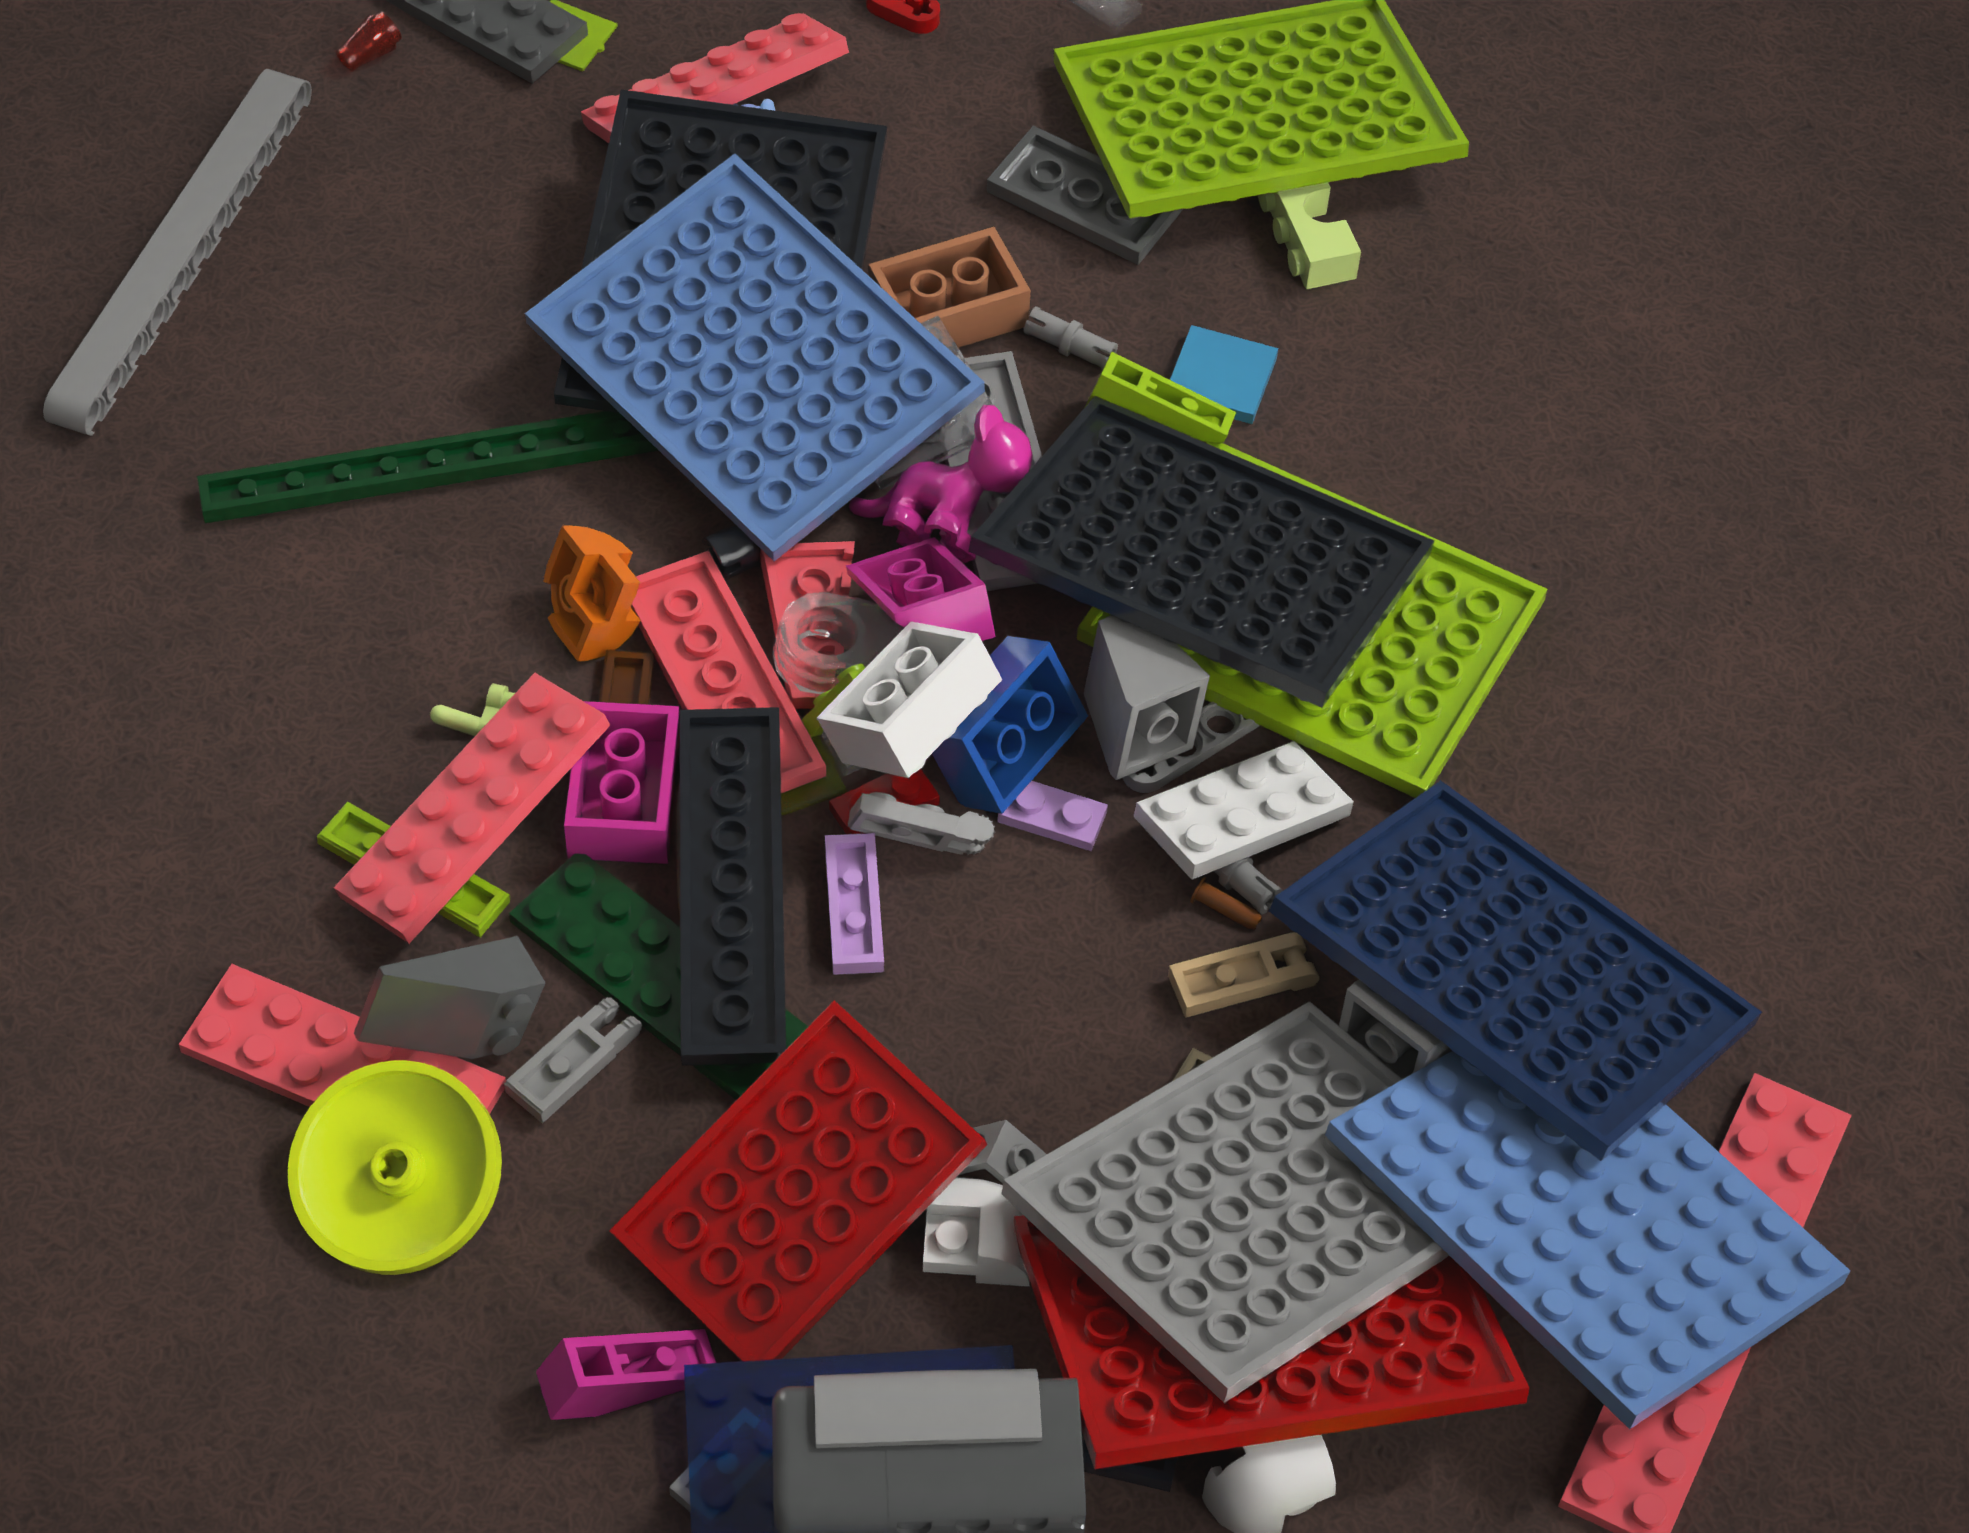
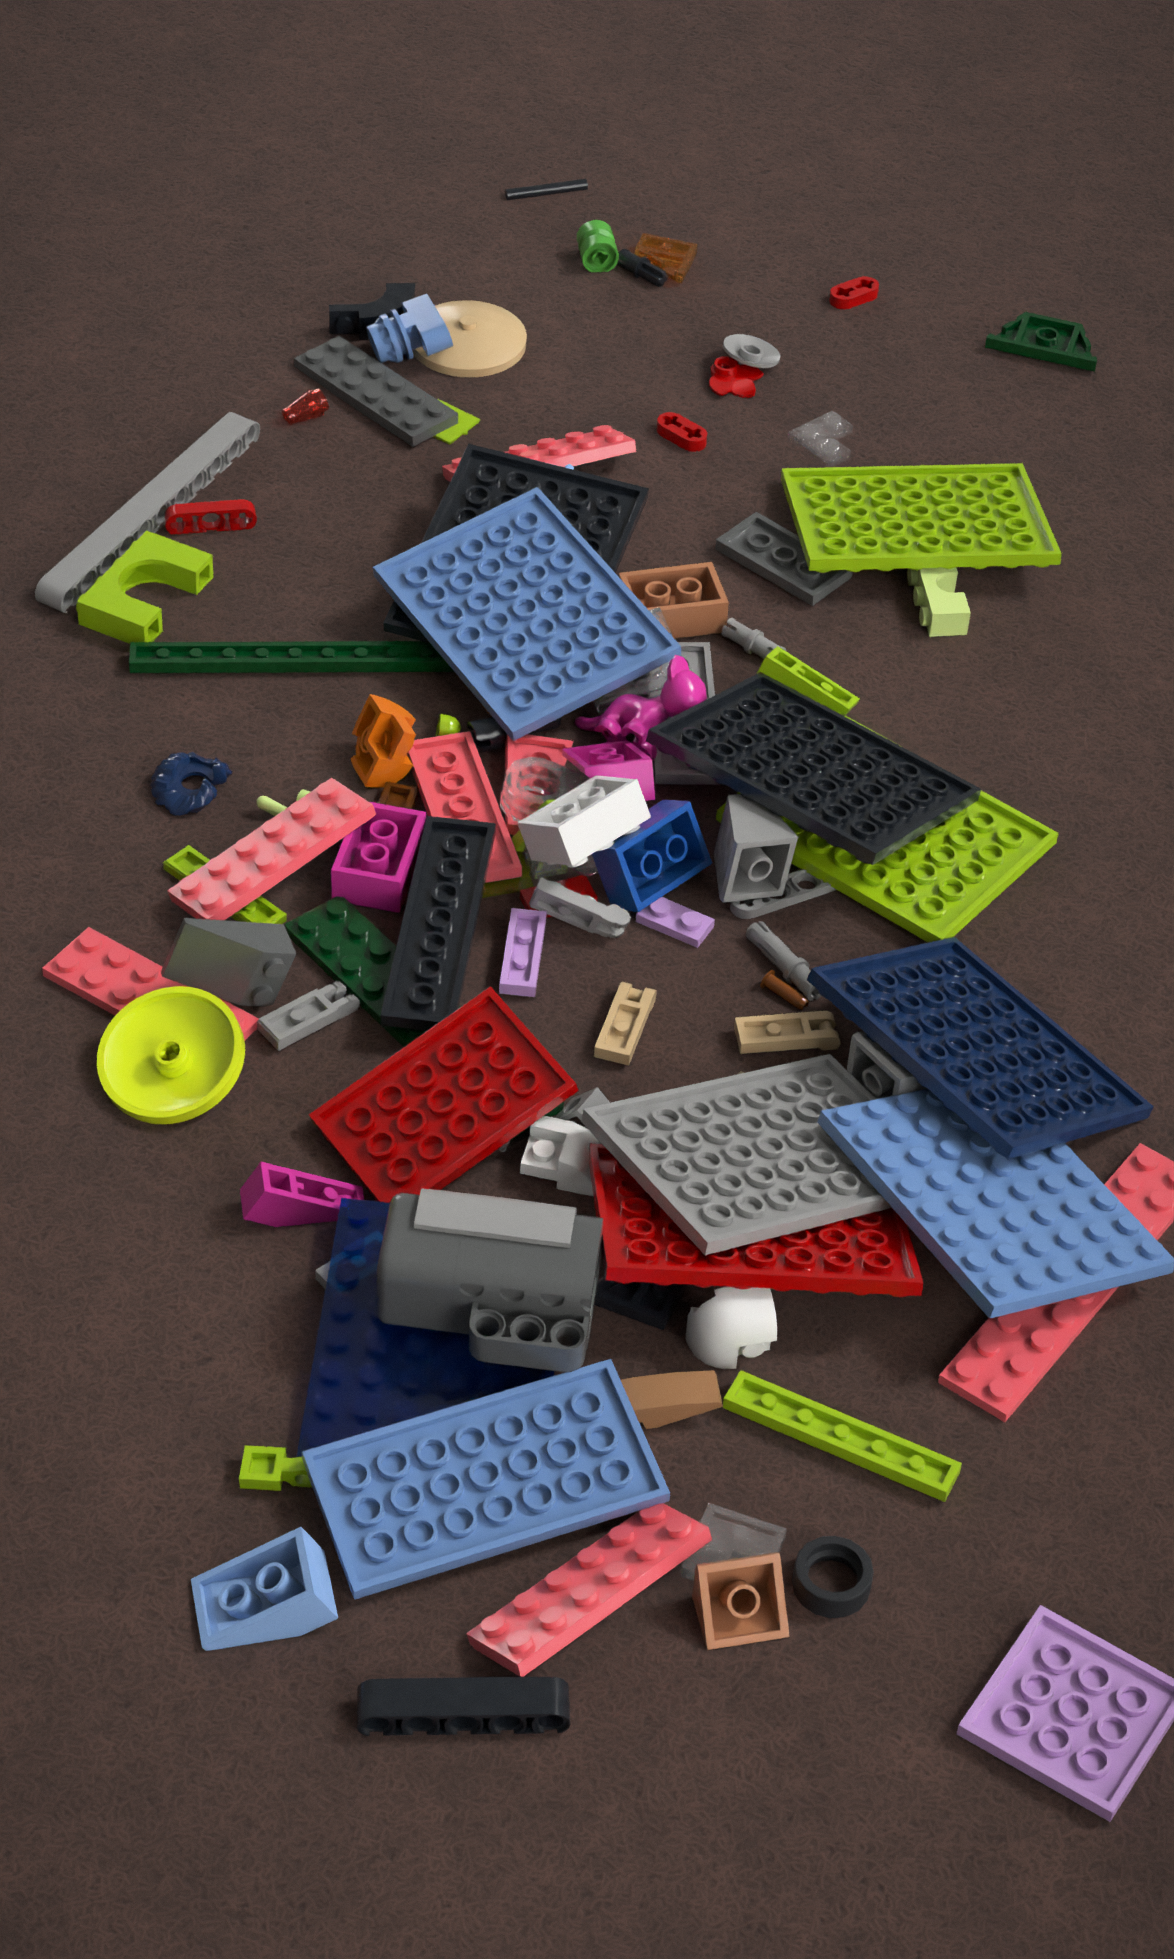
camera: 10 degrees right, 10 degrees down
(194, 334) = (148, 559): none -> lime arch
(252, 240) = (199, 509): none -> red beam
(297, 691) = (178, 766): none -> dark blue piece
(674, 546) = (447, 725): none -> lime hinge
(1018, 998) = (624, 1023): none -> tan plate
(1225, 370) = (861, 675): dark azure tile -> none
(1243, 809) = (808, 932): white plate -> none

